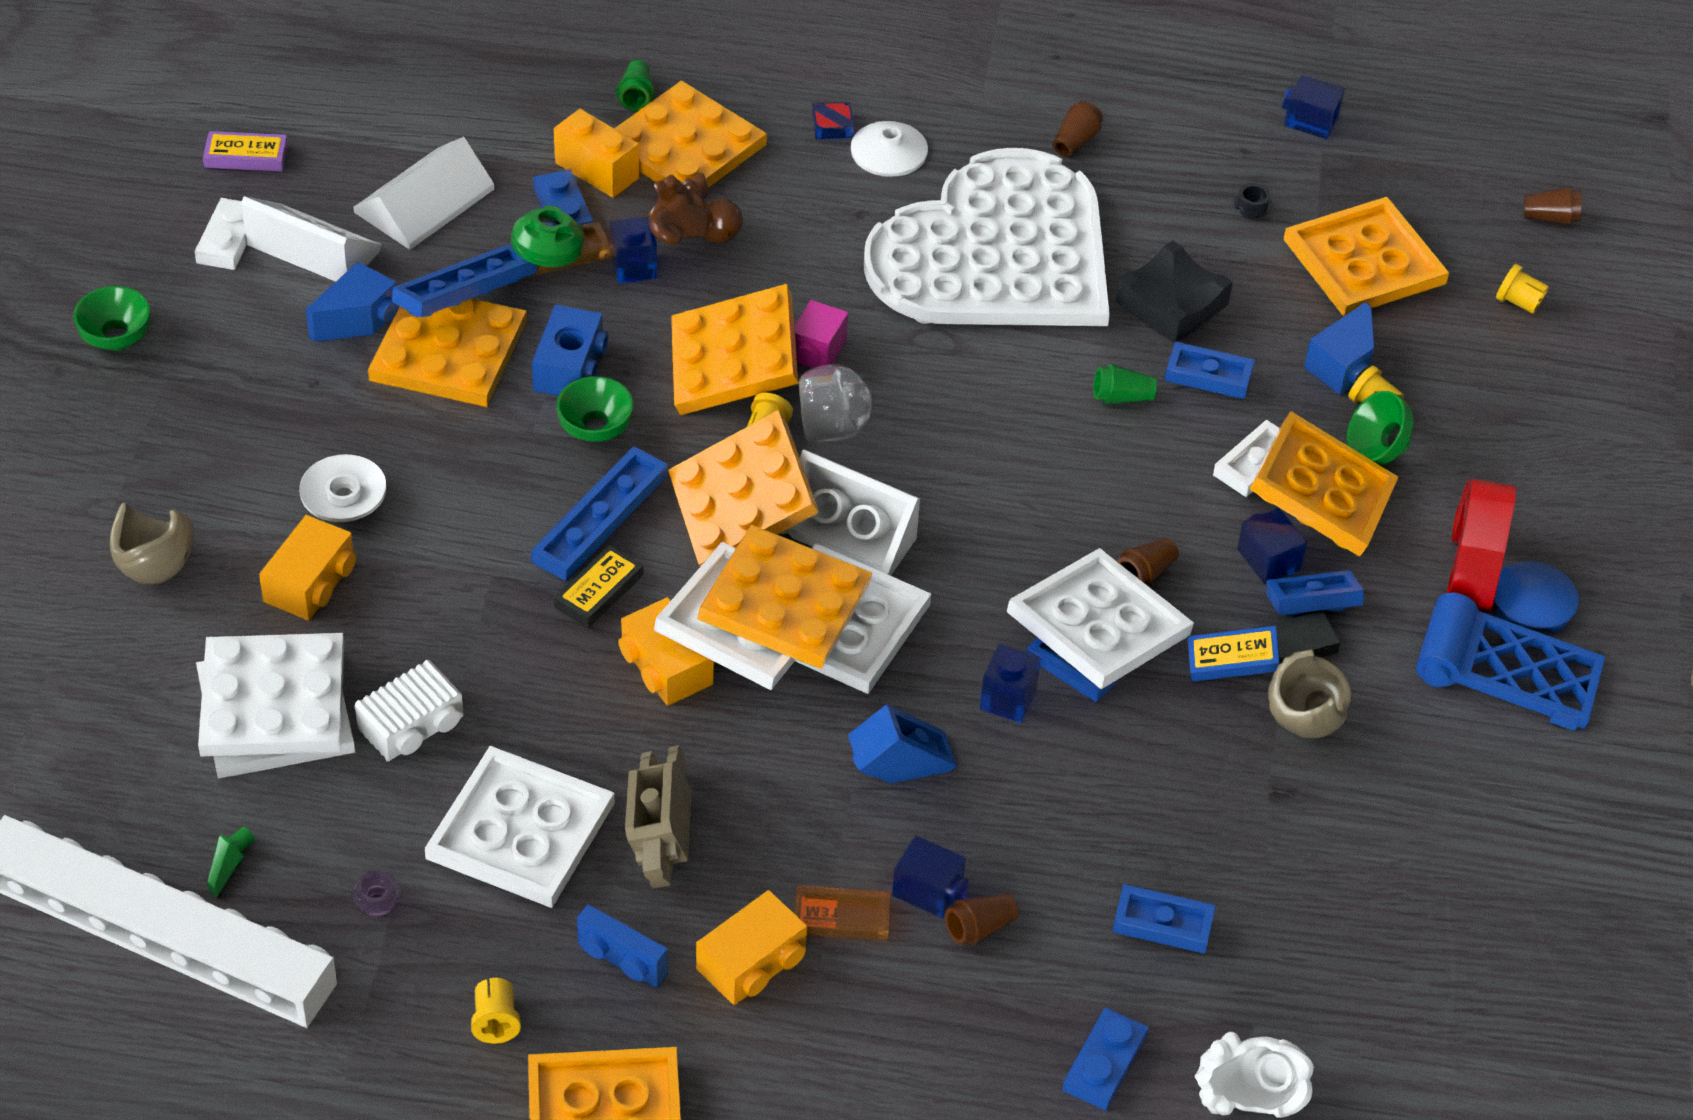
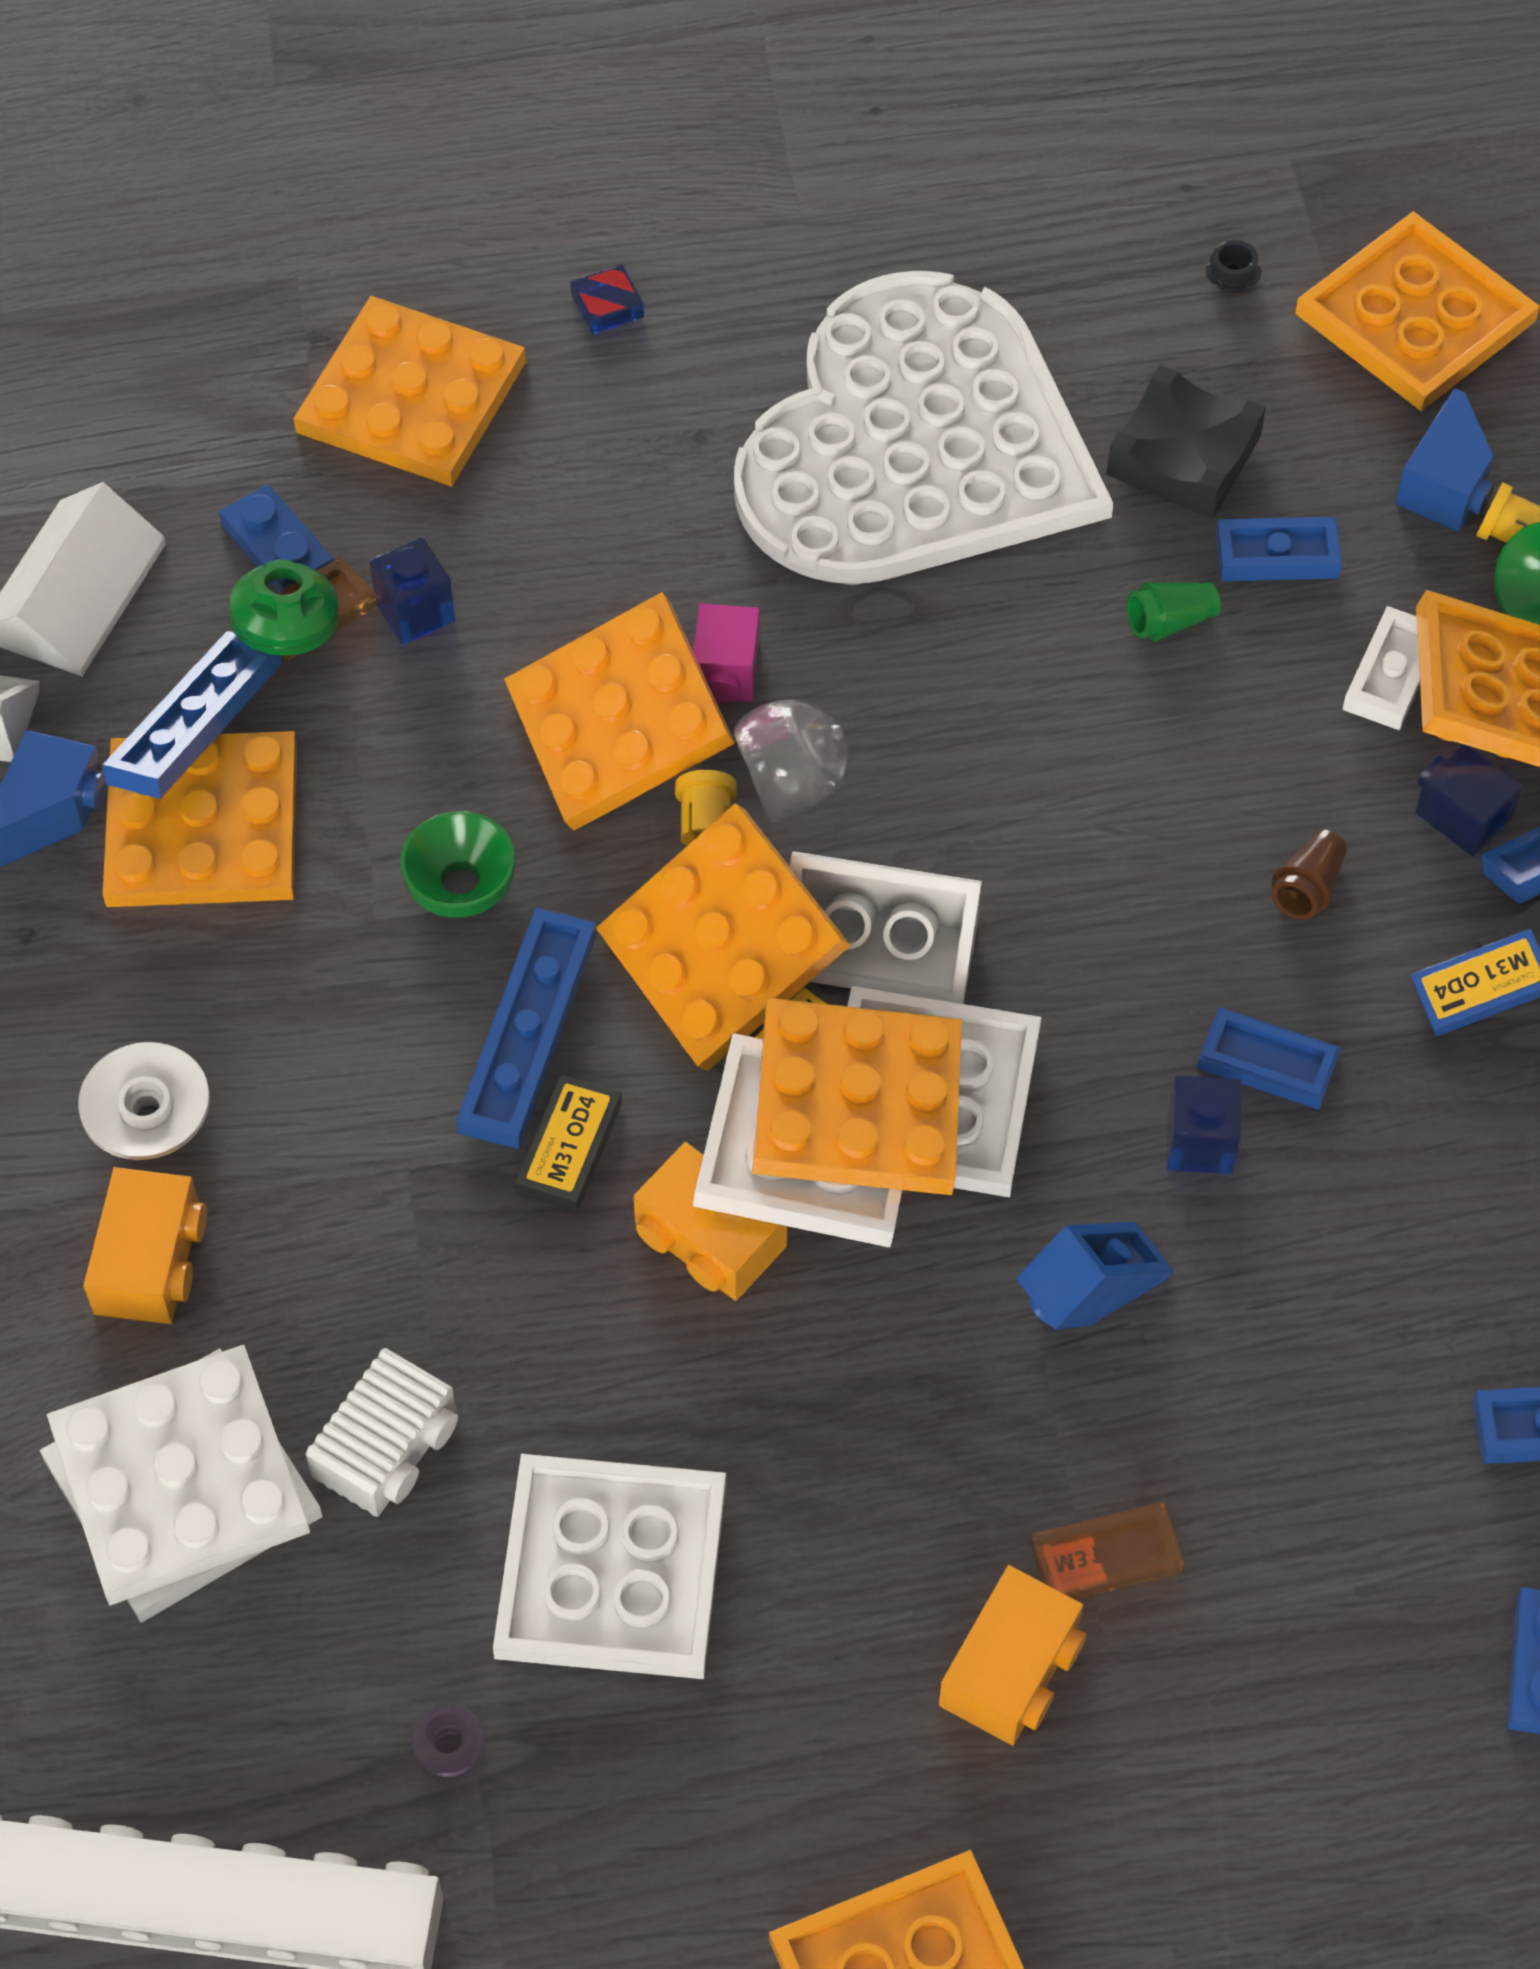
camera: 15 degrees left, 10 degrees up
(227, 857) = (209, 1753): green bar -> none
(495, 1012) = (692, 1875): yellow bush -> none
(568, 349) = (379, 750): blue brick -> none
(596, 153) = (297, 448): light orange brick -> none
(622, 946) = (857, 1720): blue plate -> none
(635, 86) = (310, 323): green cone -> none
(659, 815) = (805, 1490): dark tan hinge -> none
(683, 212) = (470, 519): reddish brown animal -> none
(889, 148) = (701, 321): white dish -> none
(930, 877) = (1212, 1463): clear blue brick -> none
(979, 917) = (1300, 1503): reddish brown cone -> none
(1078, 127) = (953, 219): reddish brown cone -> none
(1100, 618) = (1284, 984): white plate -> none
(1313, 106) = (1259, 96): clear blue brick -> none

